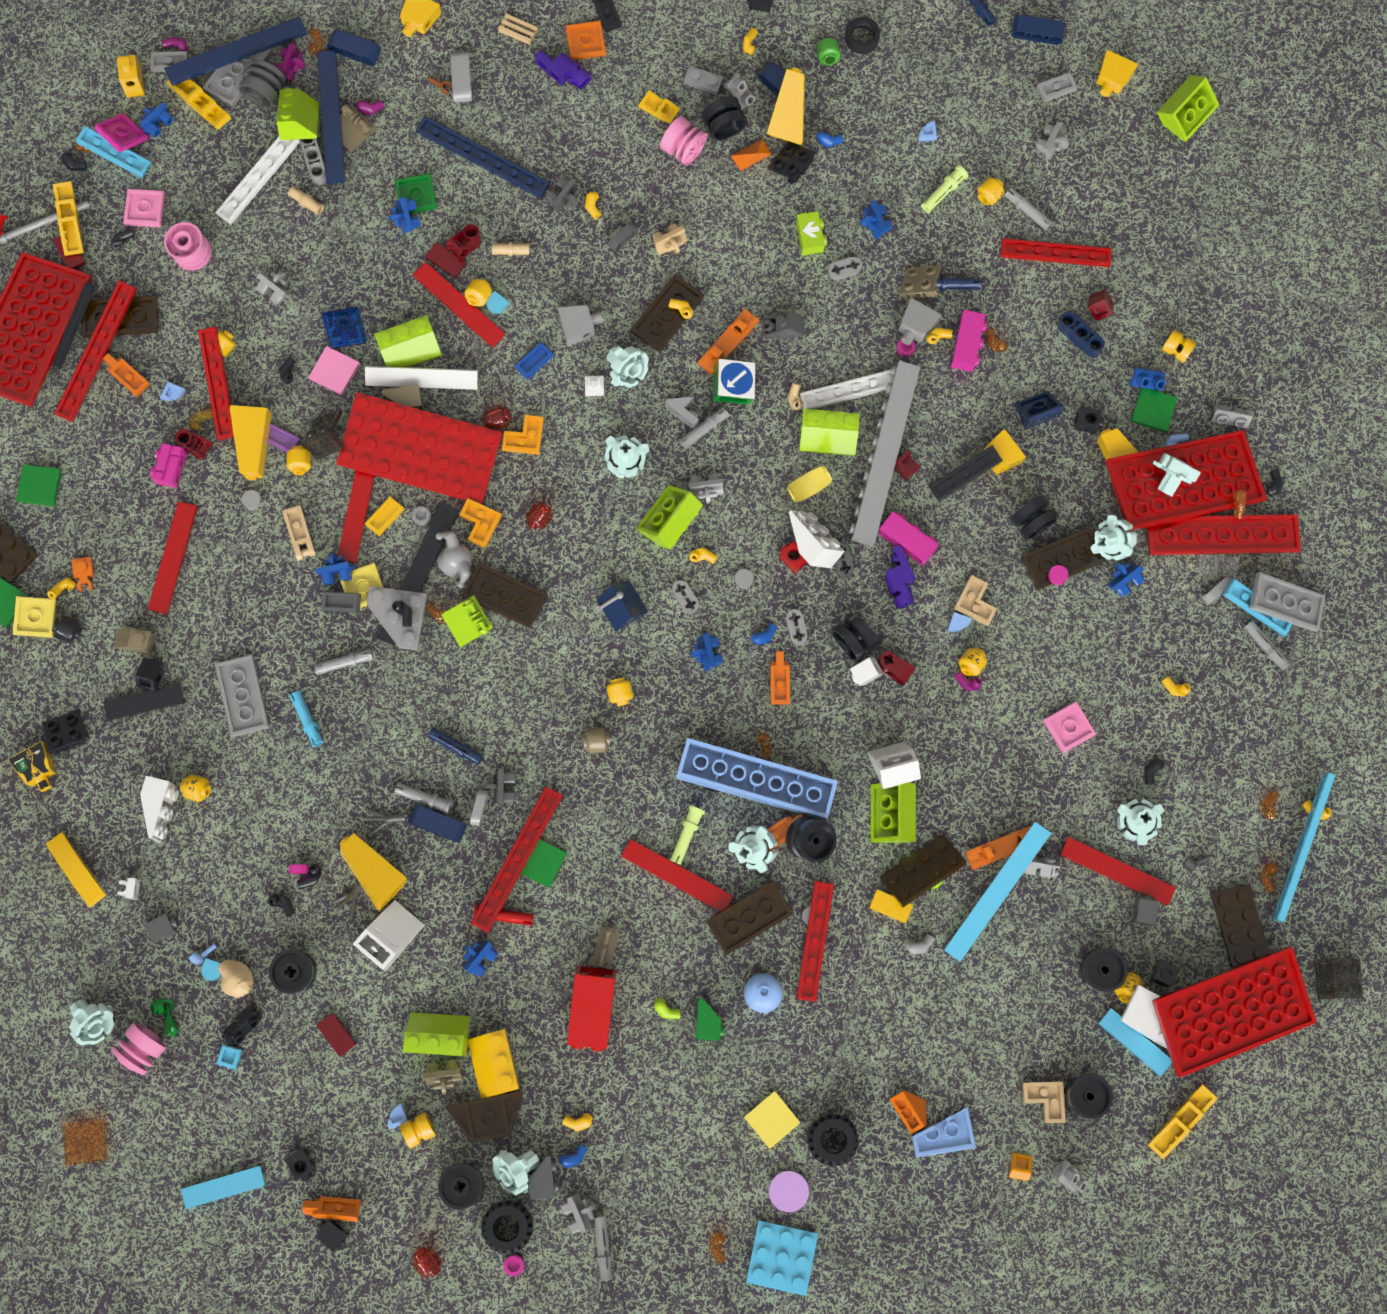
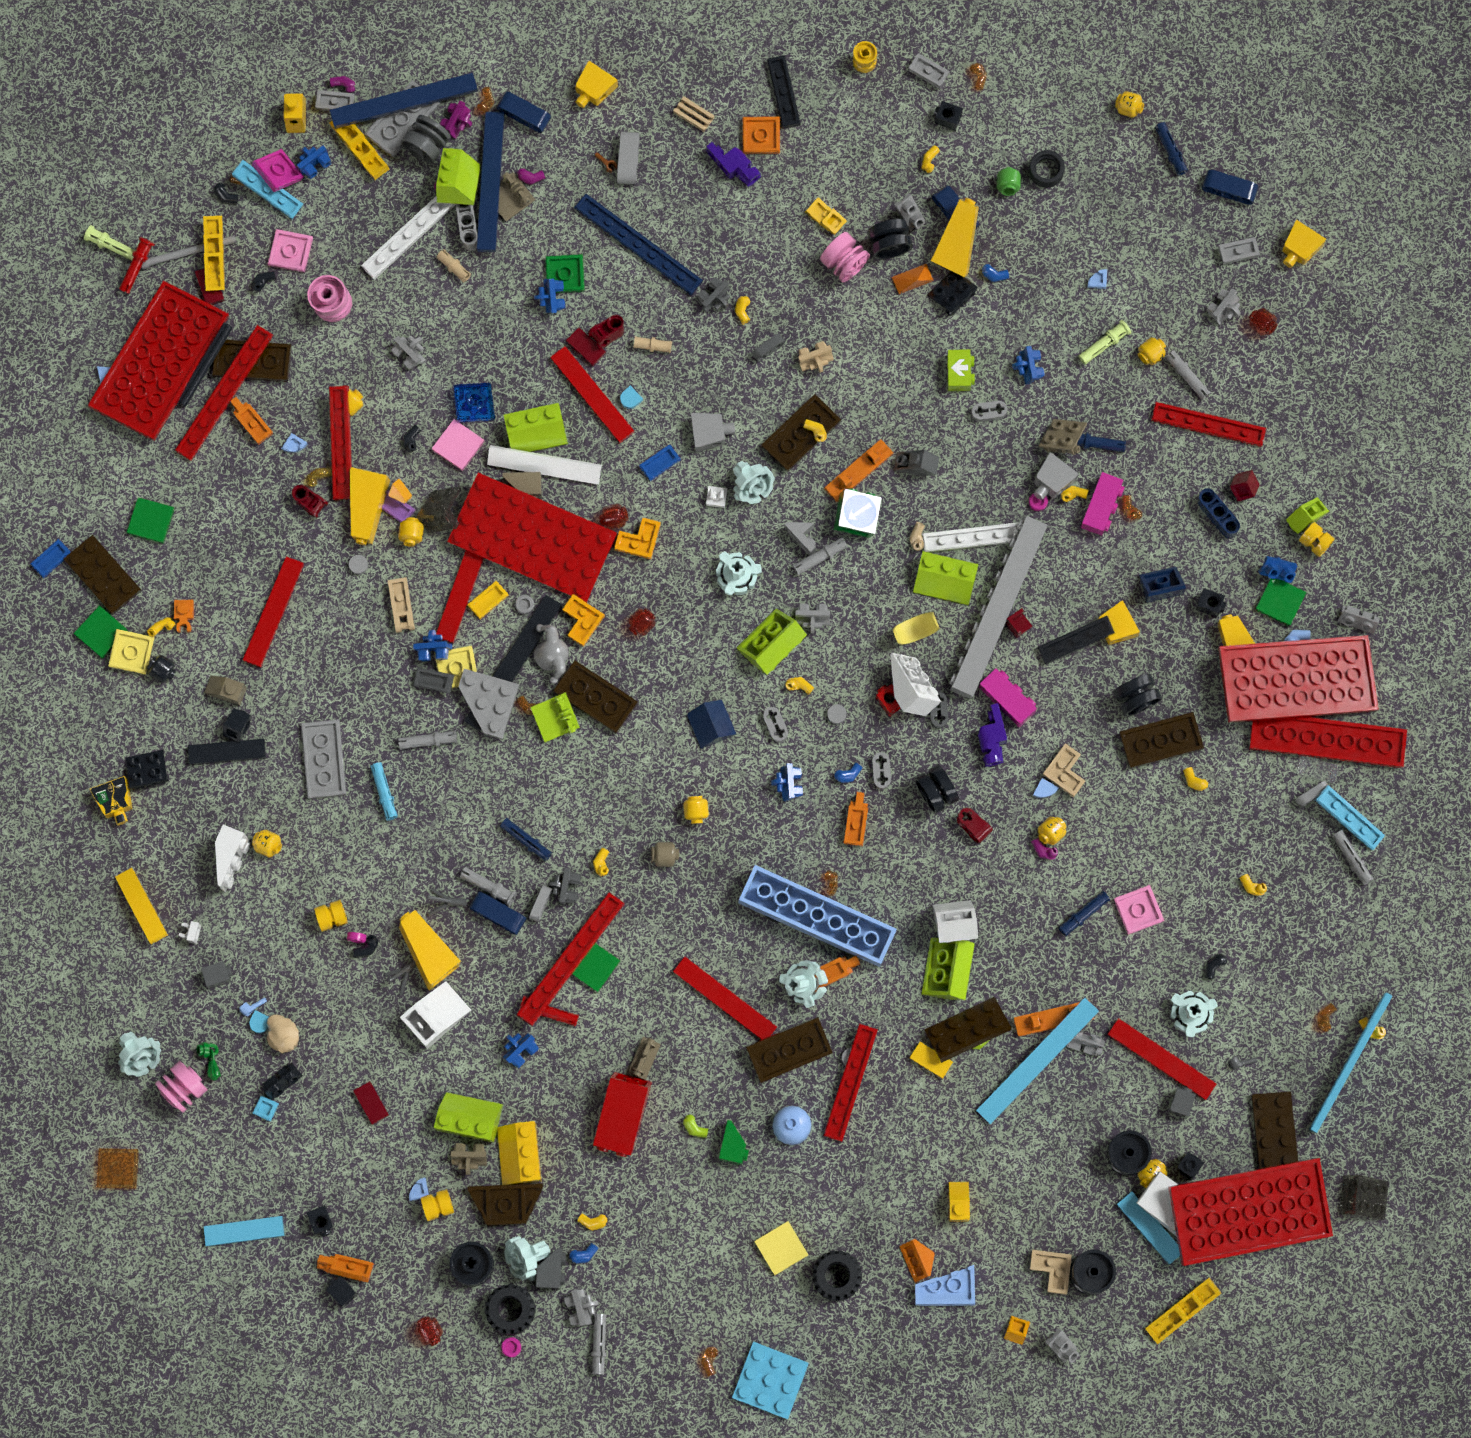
camera: 15 degrees right, 0 degrees up
(168, 465) = (281, 518): dark pink brick -> none
(270, 850) = (331, 915): none -> yellow wheel
(281, 969) = (327, 1031): black wheel -> none
(282, 423) = (399, 492): none -> light orange slope
(283, 902) = (336, 967): black arm -> none
(405, 611) = (495, 698): black arm -> none
(478, 292) = (613, 385): yellow head -> none
(532, 759) = (599, 862): none -> yellow arm
(599, 608) = (687, 723): light grey hinge -> none
(690, 825) = (745, 952): yellowish green pin -> none
(703, 80) = (875, 194): light grey plate -> none
(788, 1191) = (786, 1318): lavender tile -> none
(811, 839) = (861, 982): black wheel -> none
(866, 671) = (943, 825): white brick -> none
(920, 947) = (953, 1104): light grey arm -> none
(942, 1045) = (959, 1202): none -> yellow slope
(1012, 744) = (1084, 913): none -> dark blue pin
(1058, 575) = (1152, 756): dark pink tile -> none
(1091, 149) = (1263, 321): none -> clear red head
(1101, 594) = (1194, 782): none -> yellow arm
(1113, 539) = (1212, 729): light aqua piece -> none
(1123, 575) = (1214, 773): blue hips -> none
(1164, 325) = (1307, 514): none -> lime slope
(1175, 472) = (1286, 670): light aqua piece -> none
(1188, 107) = (1372, 291): lime slope -> none
(1240, 502) = (1348, 709): clear orange arm -> none
(1266, 876) = (1310, 1085): clear orange arm -> none
(1277, 483) = (1393, 694): black arm -> none
(1287, 601) = (1379, 816): light grey tile -> none

